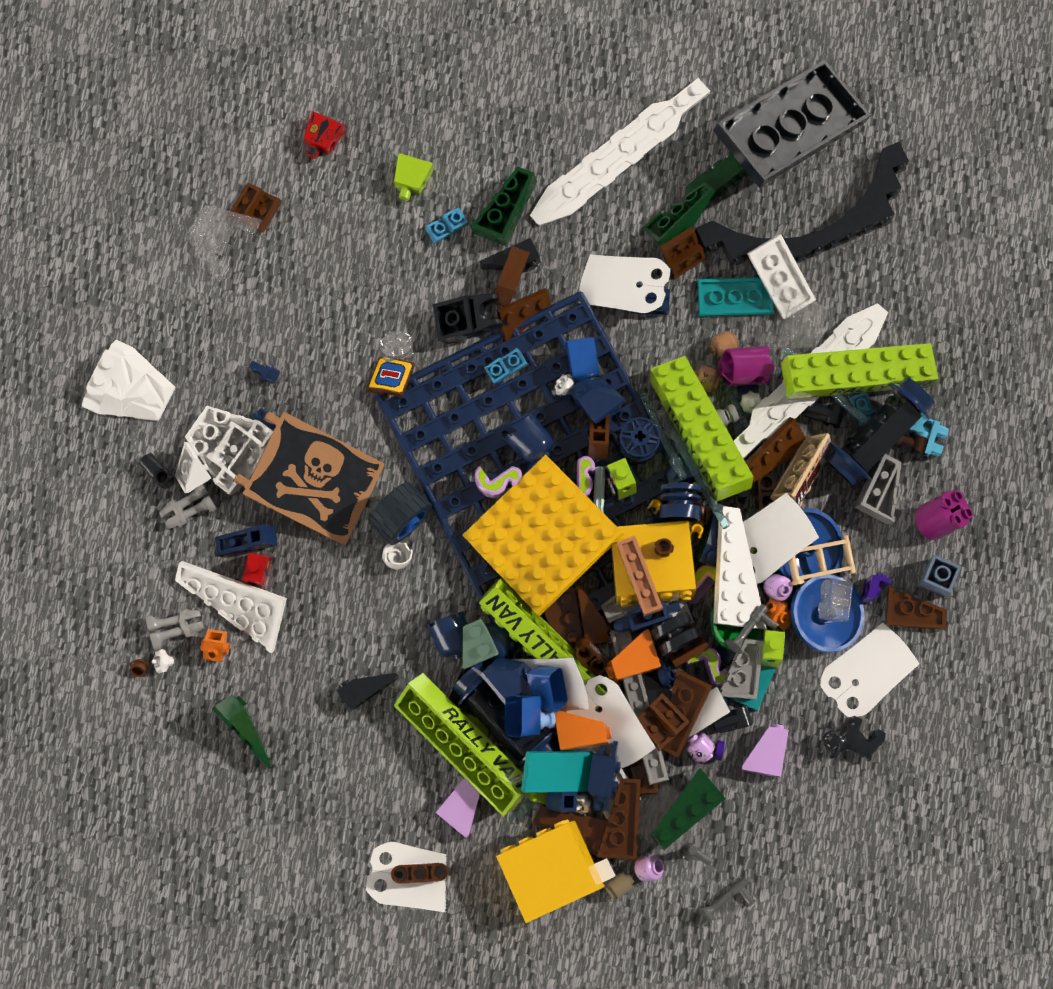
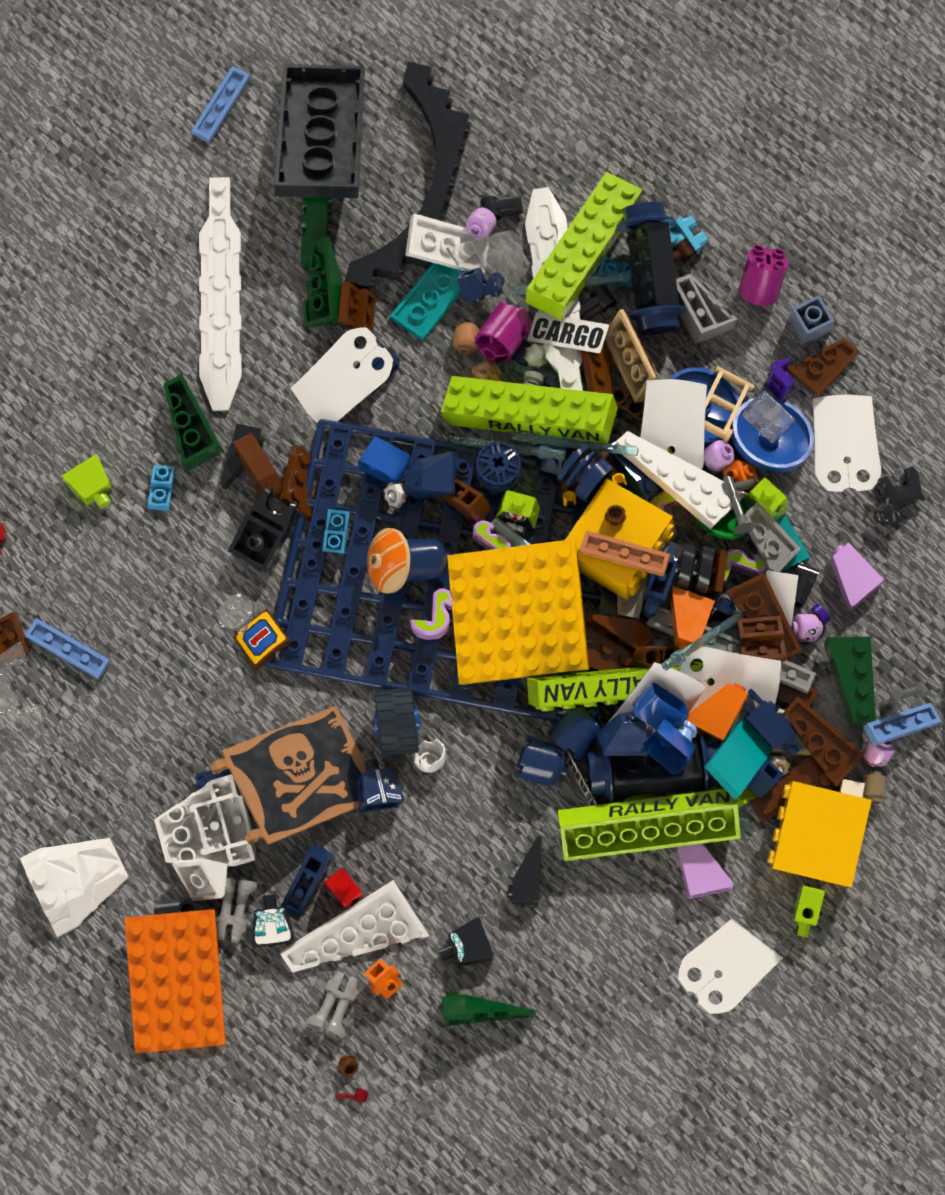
camera: 55 degrees left, 5 degrees down
(108, 507) = (175, 981): none -> orange plate
(125, 692) = (359, 1096): none -> dark red hand
(162, 661) = (358, 1040): white piece -> none
(196, 541) = (272, 925): none -> torso
(267, 373) = (167, 744): dark blue piece -> none
(283, 254) = (67, 648): none -> medium blue plate
(284, 684) = (468, 945): none -> black torso
(346, 537) = (378, 788): none -> dark blue torso
(410, 873) = (740, 944): reddish brown beam -> none
(477, 643) = (571, 740): sand green wing -> none
(497, 899) = (811, 899): none -> lime torso
(508, 417) = (388, 560): none -> dish
(591, 672) = (680, 655): none -> clear light blue bar
(680, 870) = (902, 724): none -> medium blue plate
(727, 655) = (741, 543): dark blue tile -> none
(760, 42) = (221, 104): none -> medium blue plate
(766, 321) = (475, 286): none -> dark blue brick
(783, 411) = (568, 333): none -> sticker
(817, 286) = (481, 221): none -> lavender head
(839, 288) = (502, 206): none -> black piece

